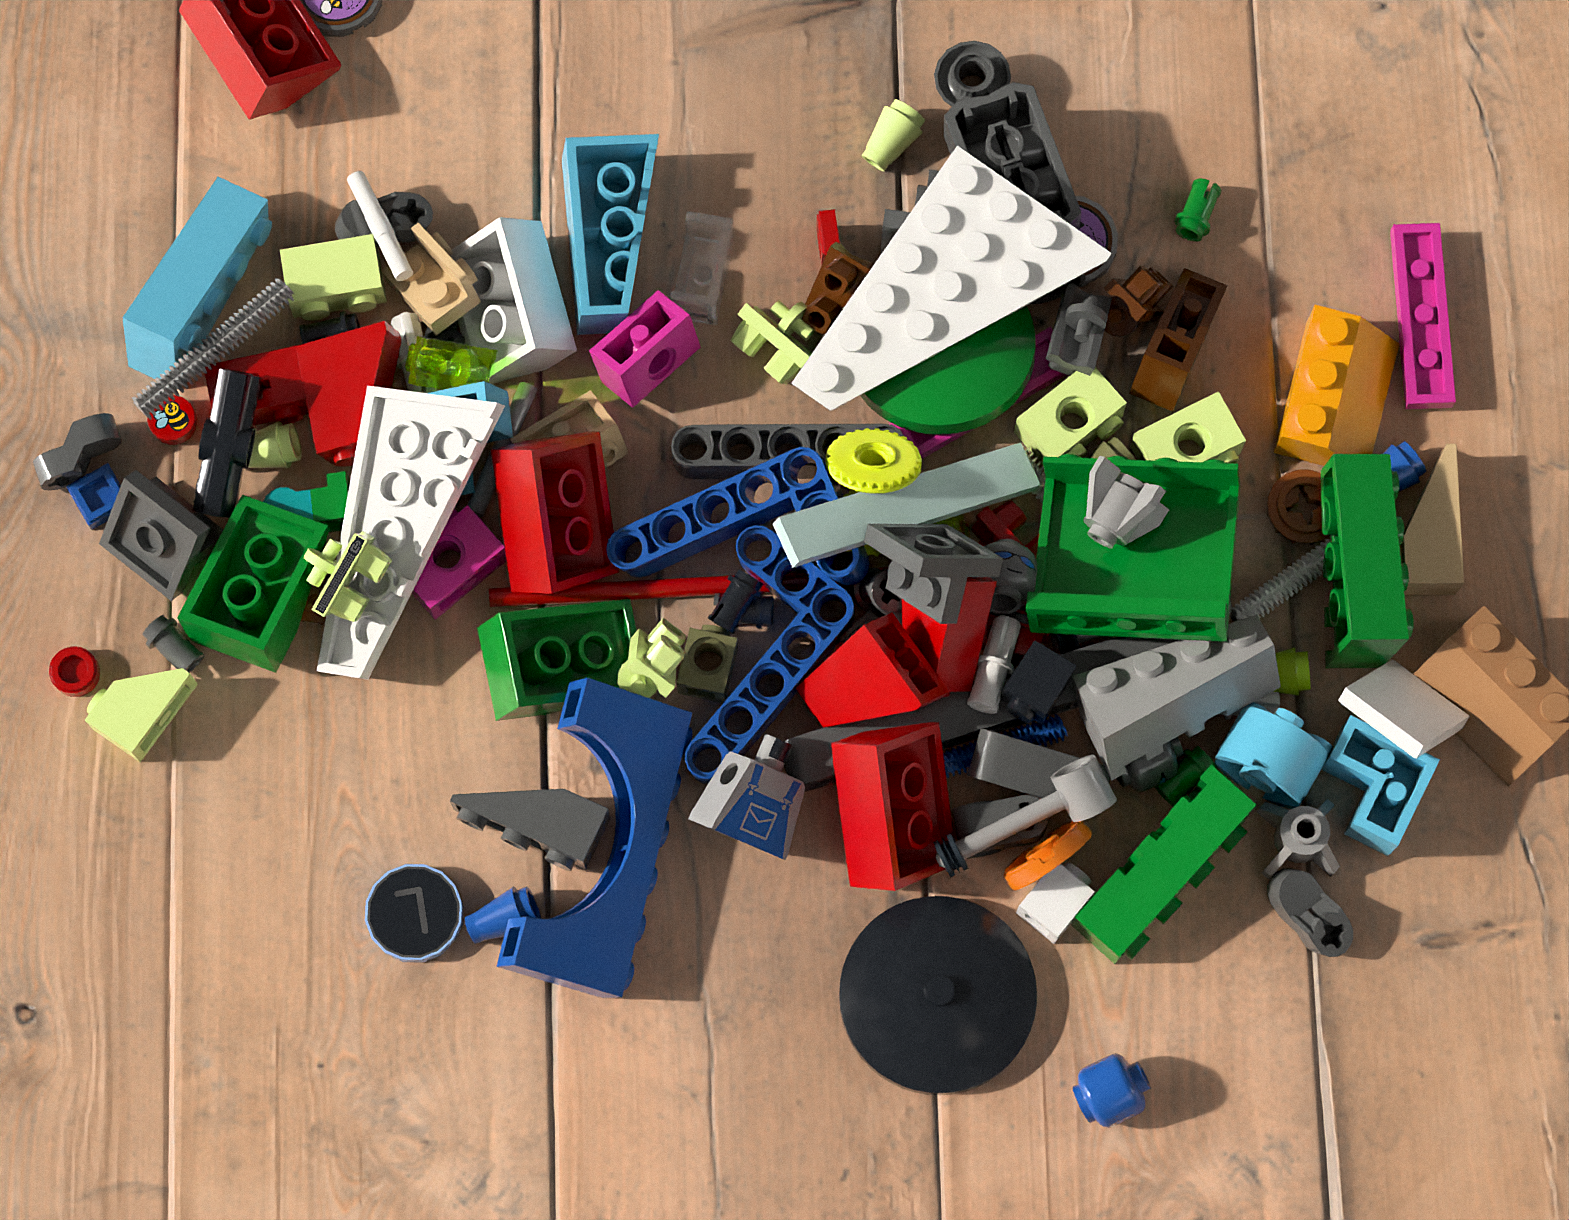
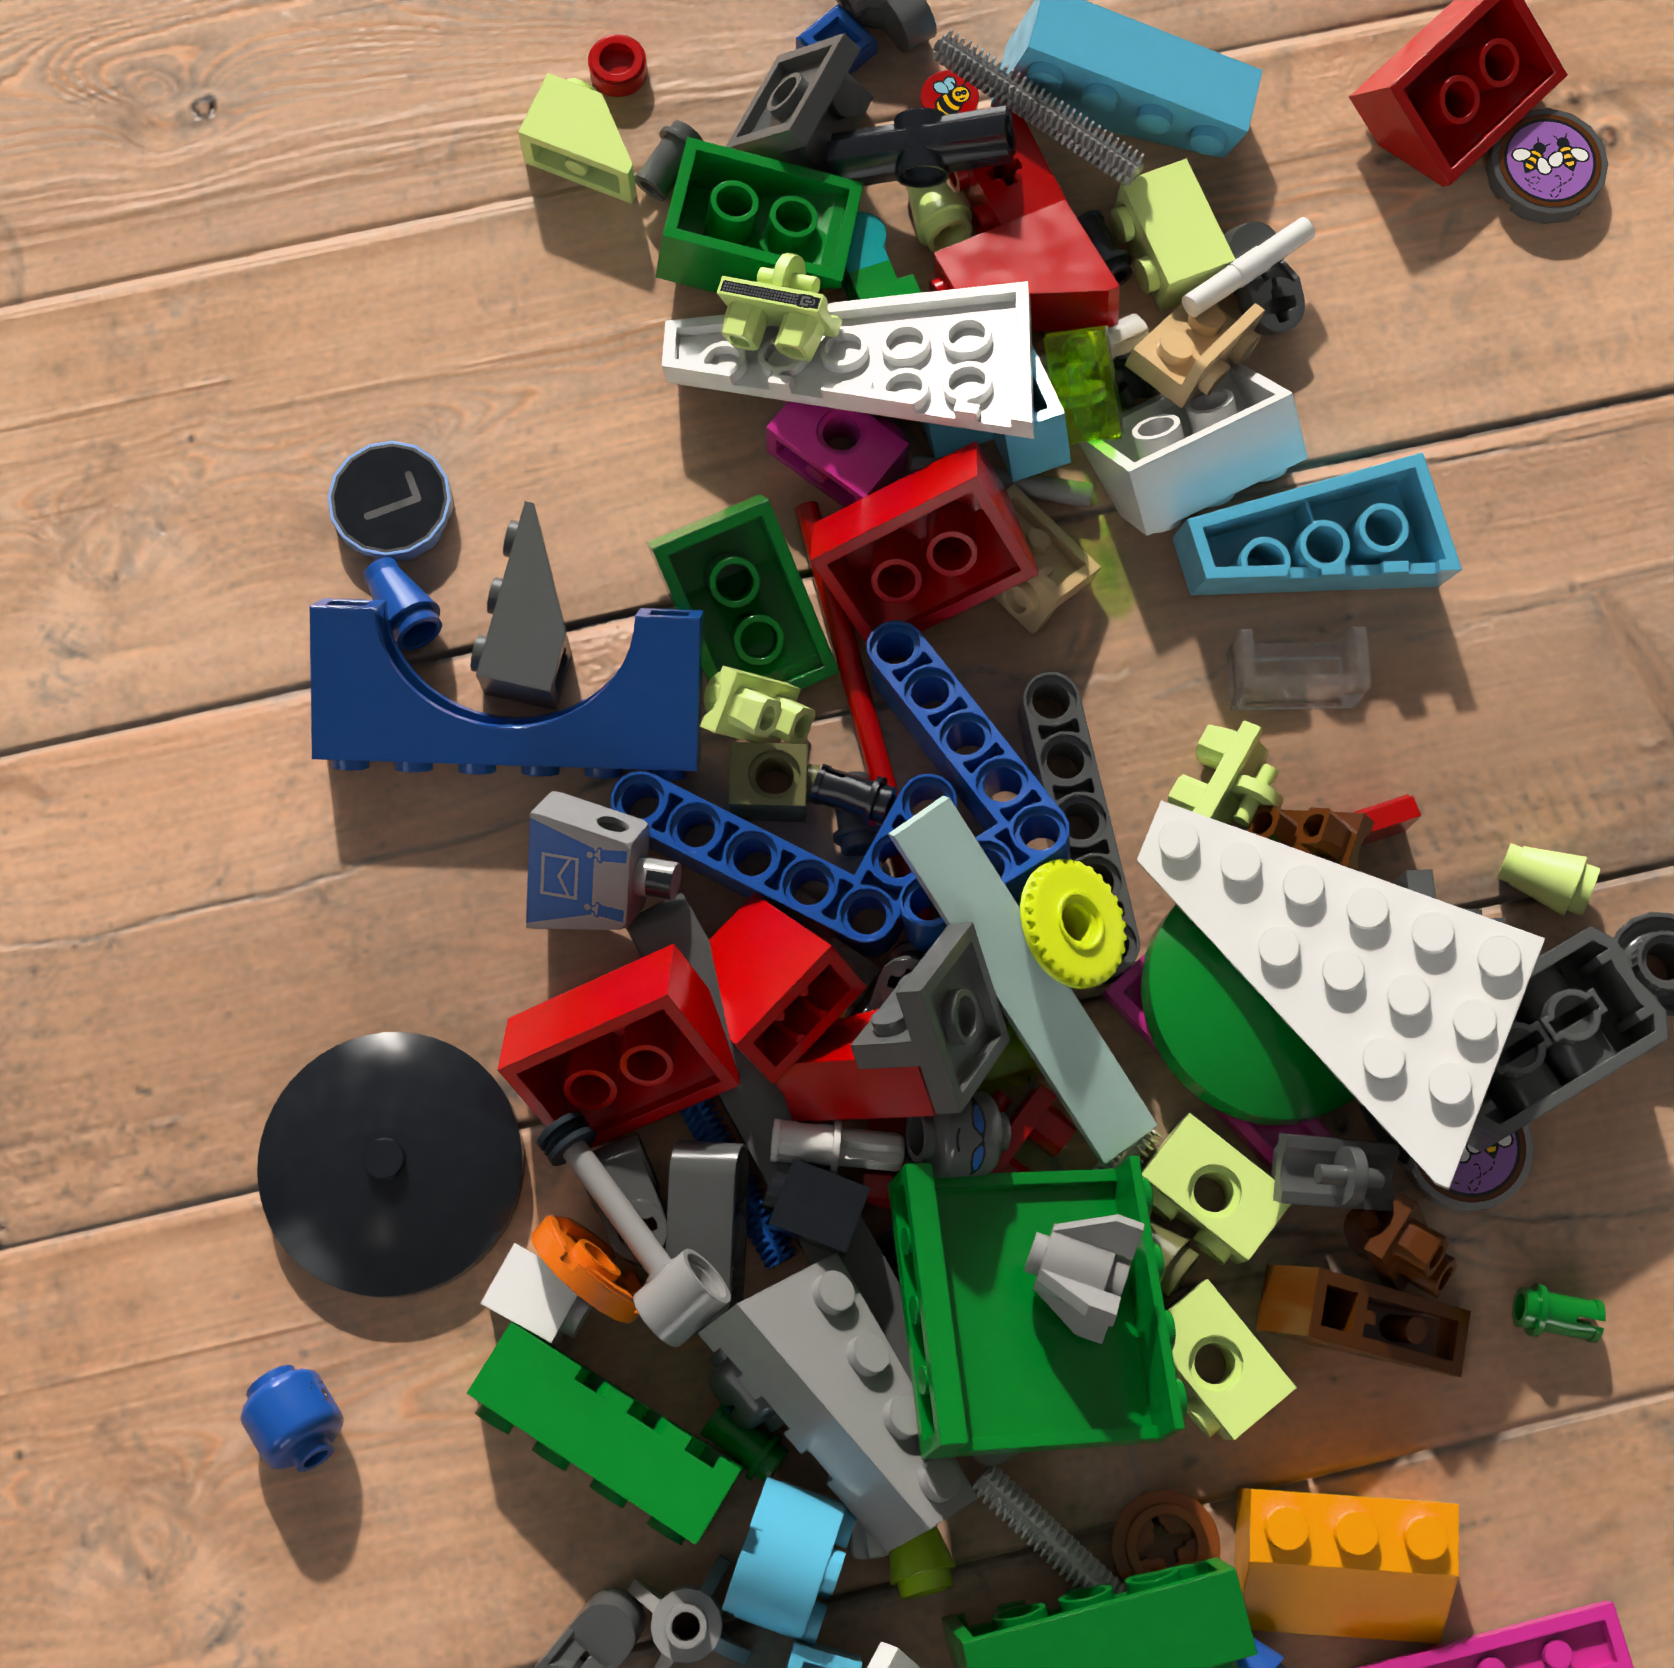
camera: 75 degrees right, 0 degrees up
(645, 348) = (1169, 616): dark pink brick -> none

